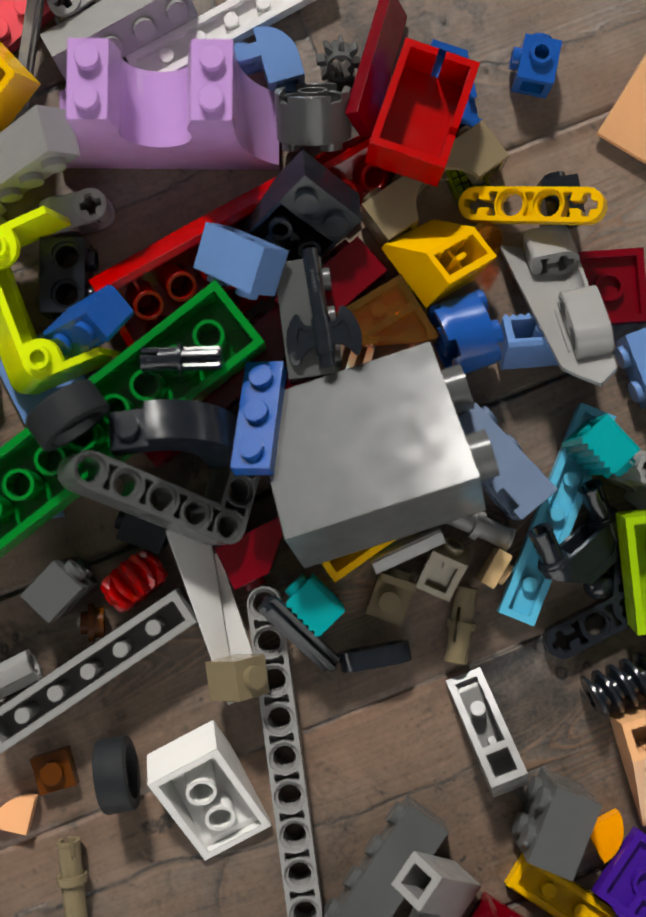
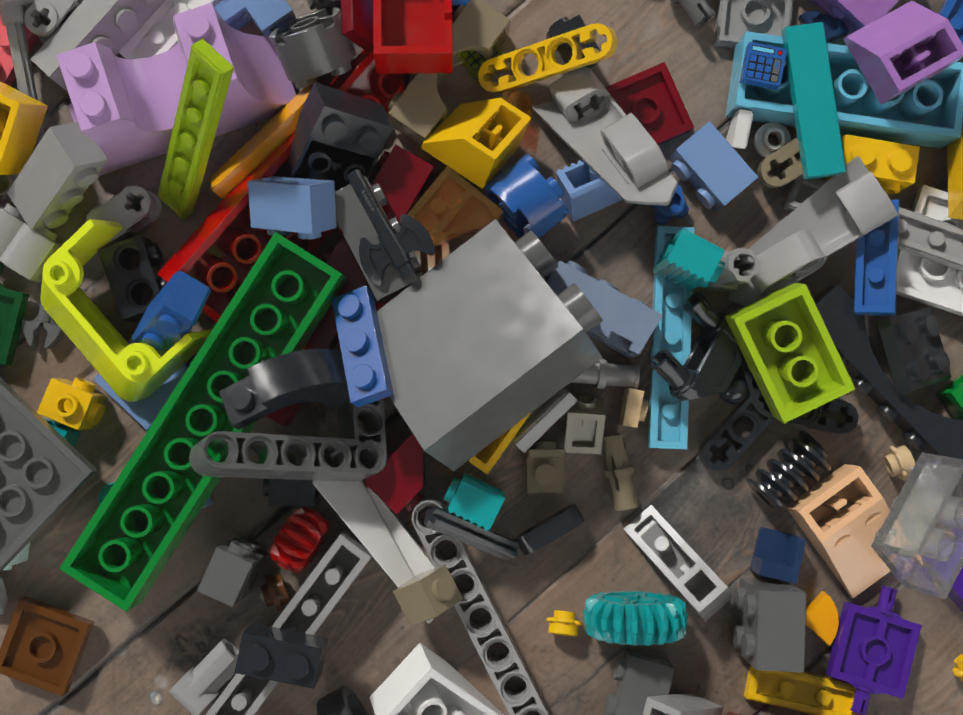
camera: 20 degrees left, 0 degrees up
(67, 415) = (180, 407): black tyre -> none
(78, 686) = (281, 655): none -> black brick
(174, 152) = (194, 127): none -> lime tile
(181, 359) = (269, 317): black axle -> none
(227, 193) = (259, 146): none -> light orange tile
(356, 751) = (564, 623): none -> yellow plate
(428, 770) = (635, 617): none -> teal gear
(585, 758) = (778, 554): none -> dark blue panel
(606, 392) = (677, 209): none -> blue plate

